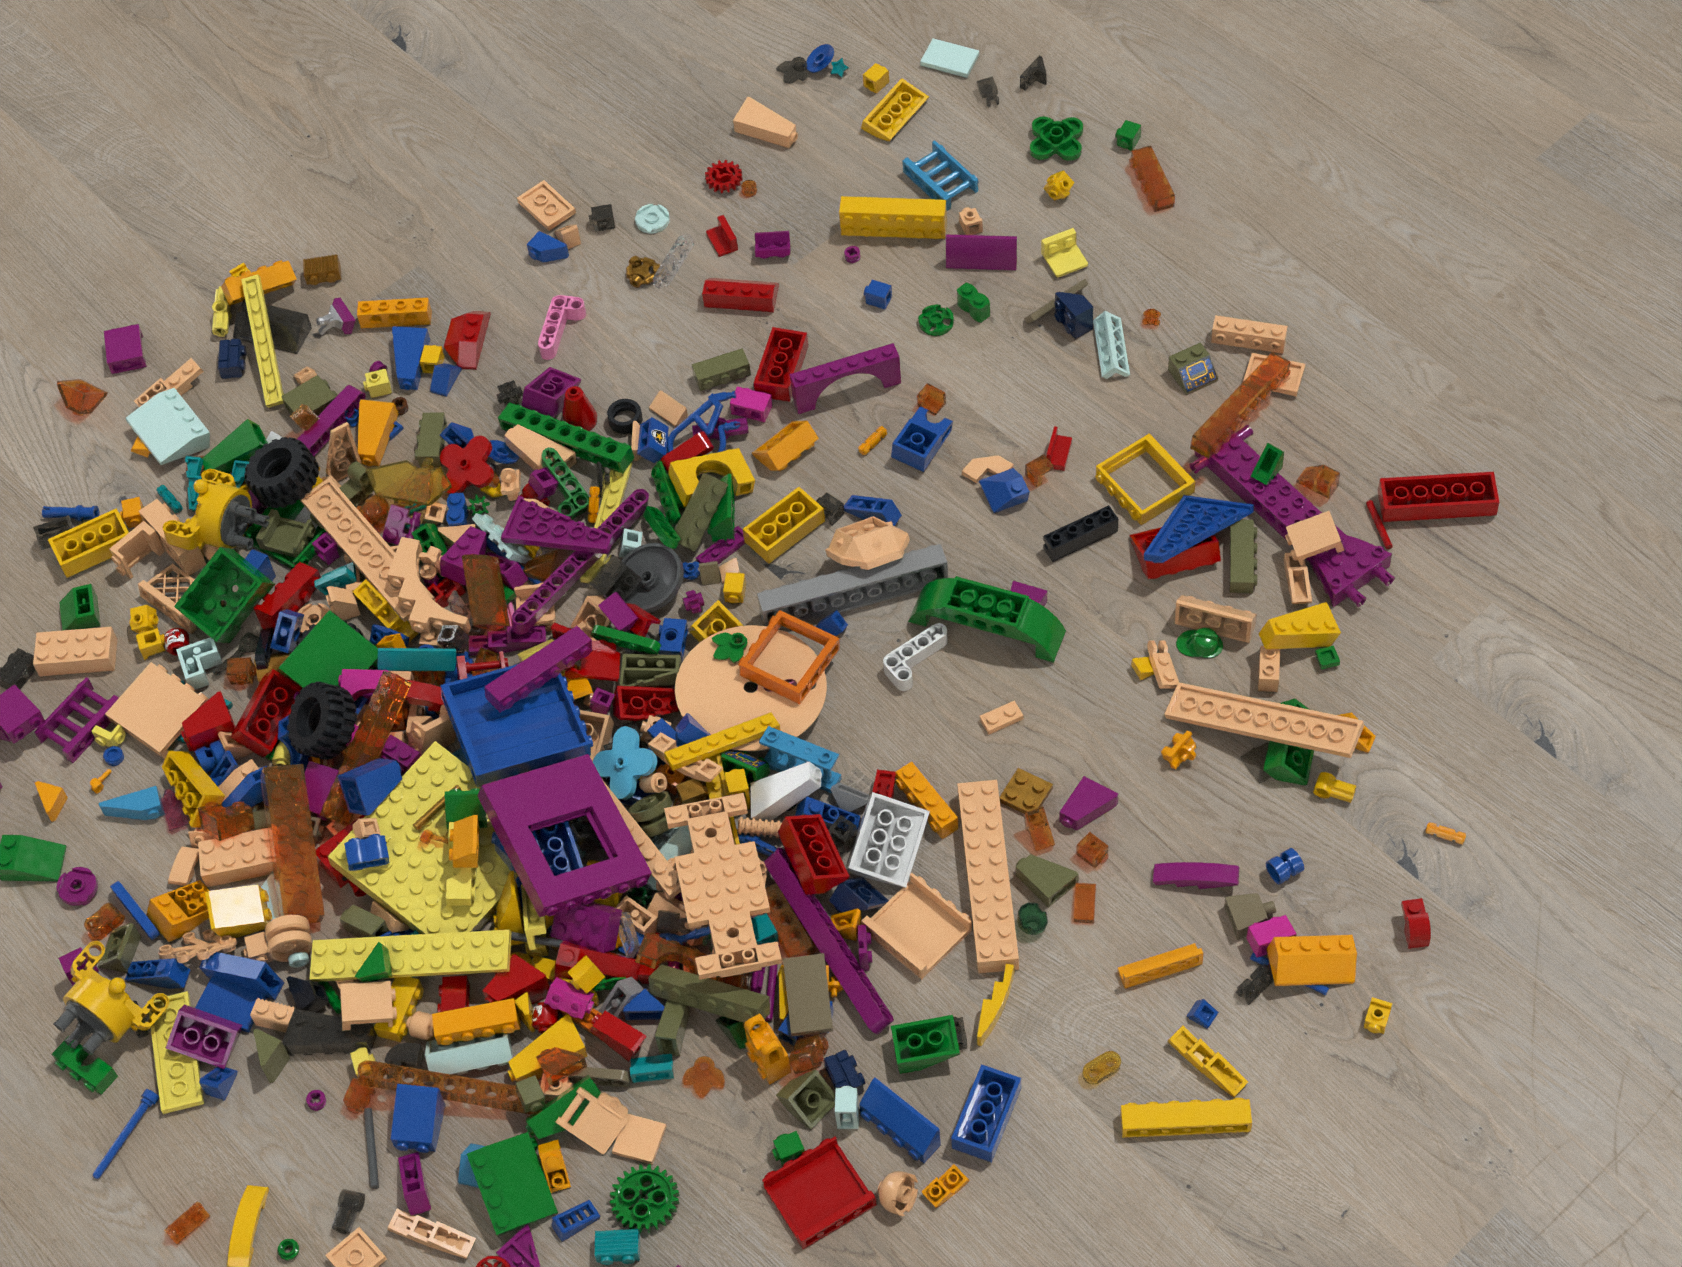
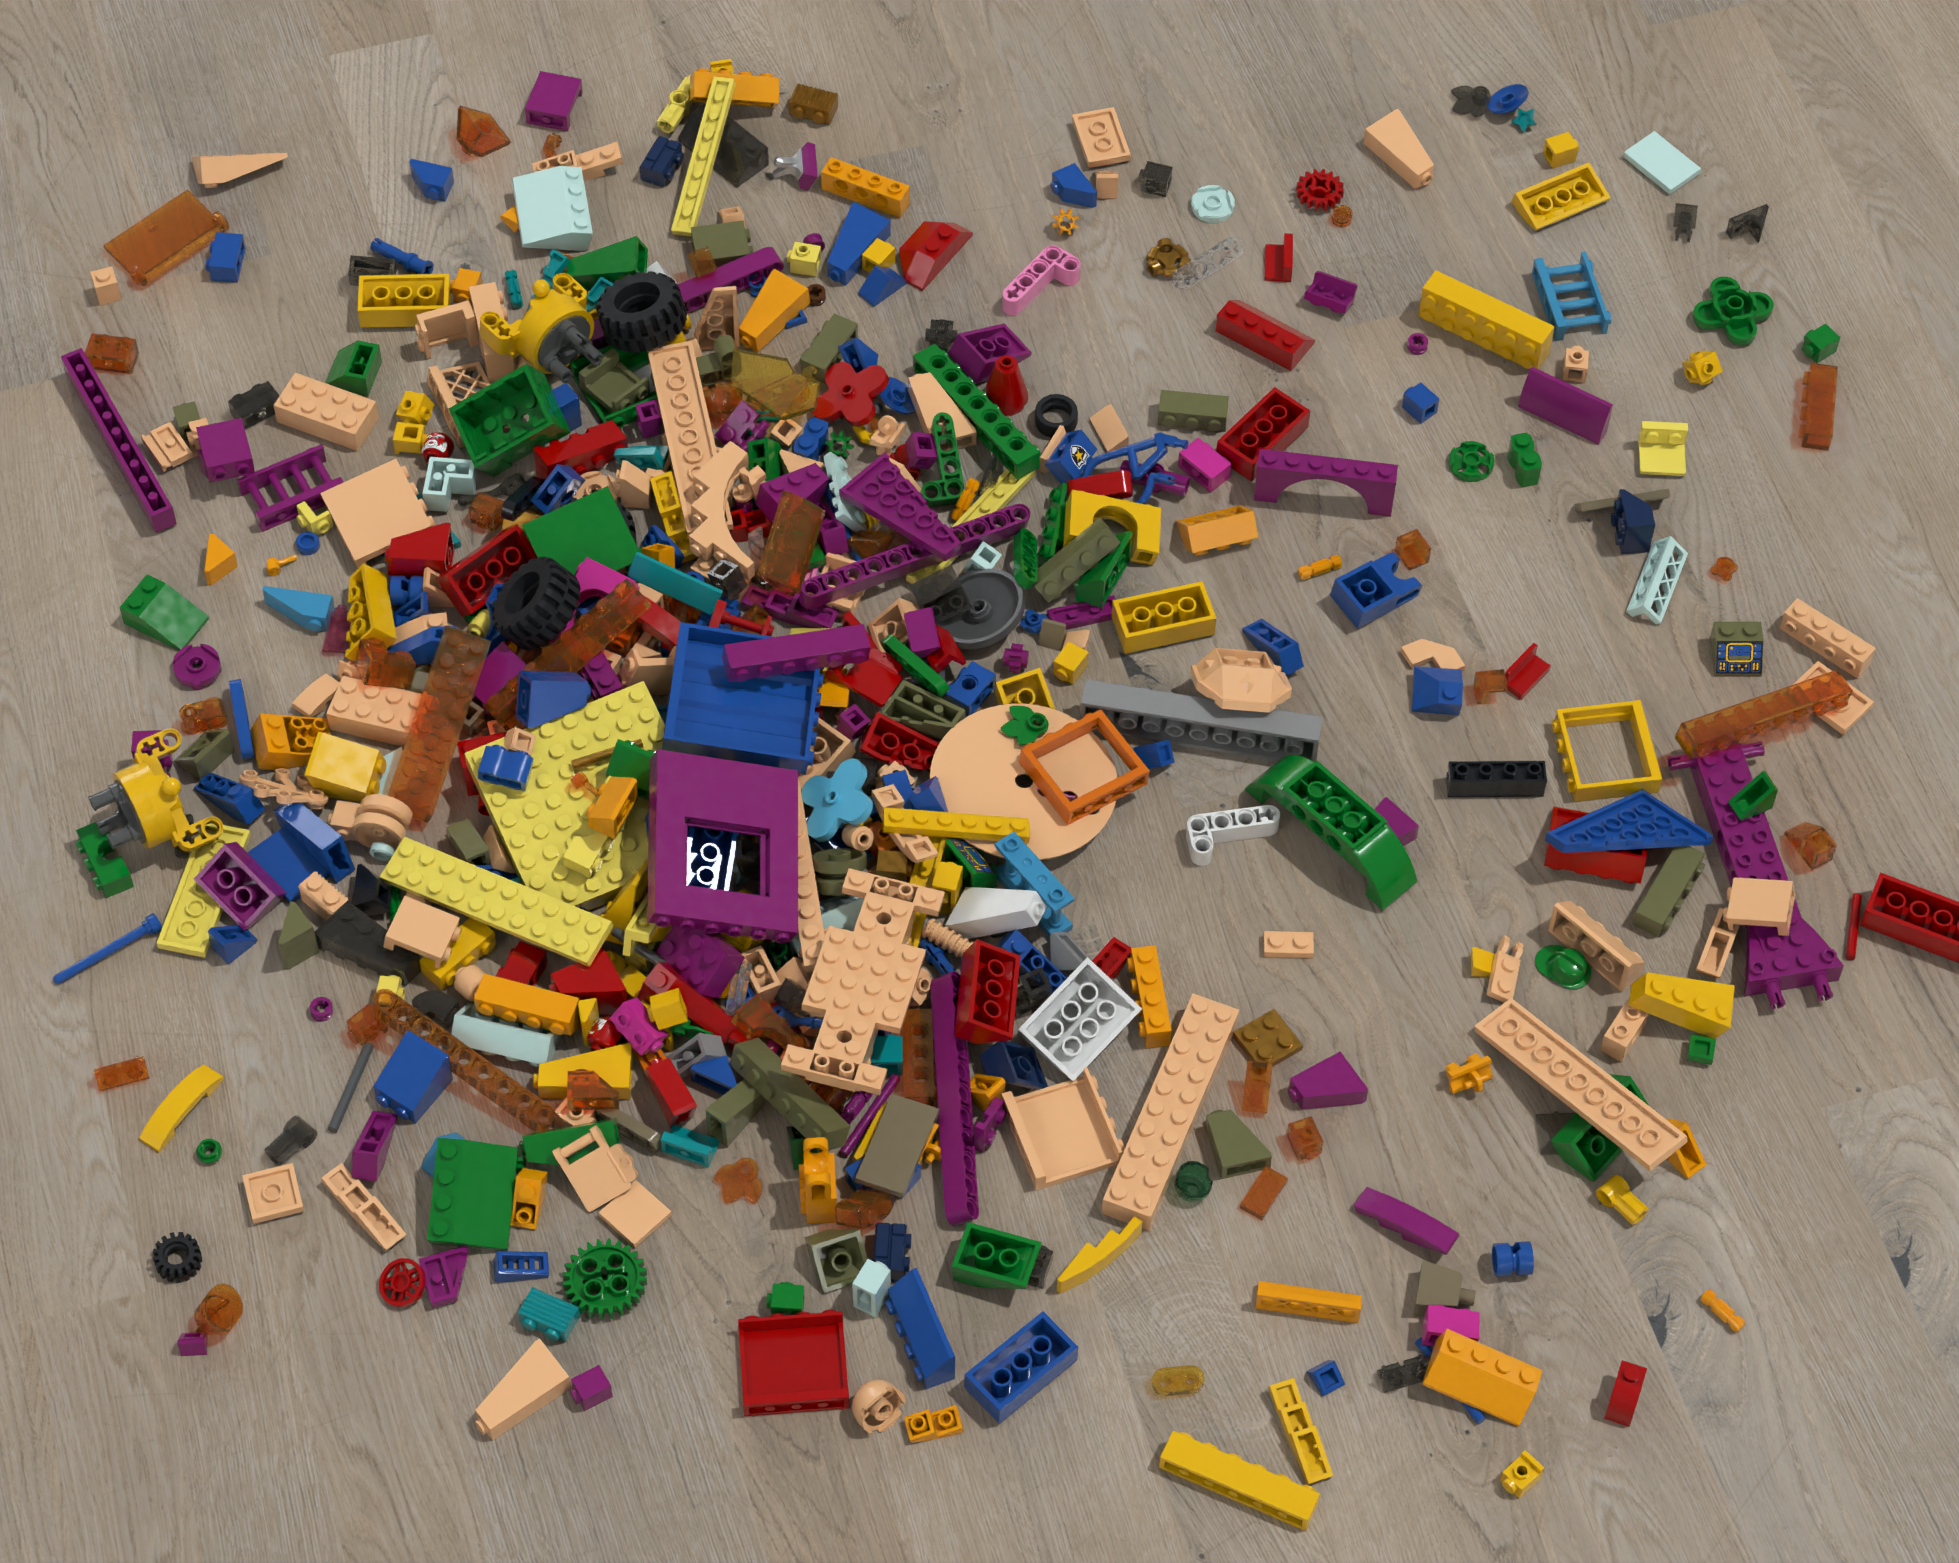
camera: 20 degrees right, 0 degrees up
(62, 445) = (432, 179): none -> blue slope
(139, 380) = (550, 144): none -> clear orange arm
(376, 966) = (453, 893): green slope -> none
(530, 1094) = (541, 1109): olive brick -> none
(559, 275) = (1071, 223): none -> light orange gear
(832, 508) = (1228, 622): clear smoke brick -> none

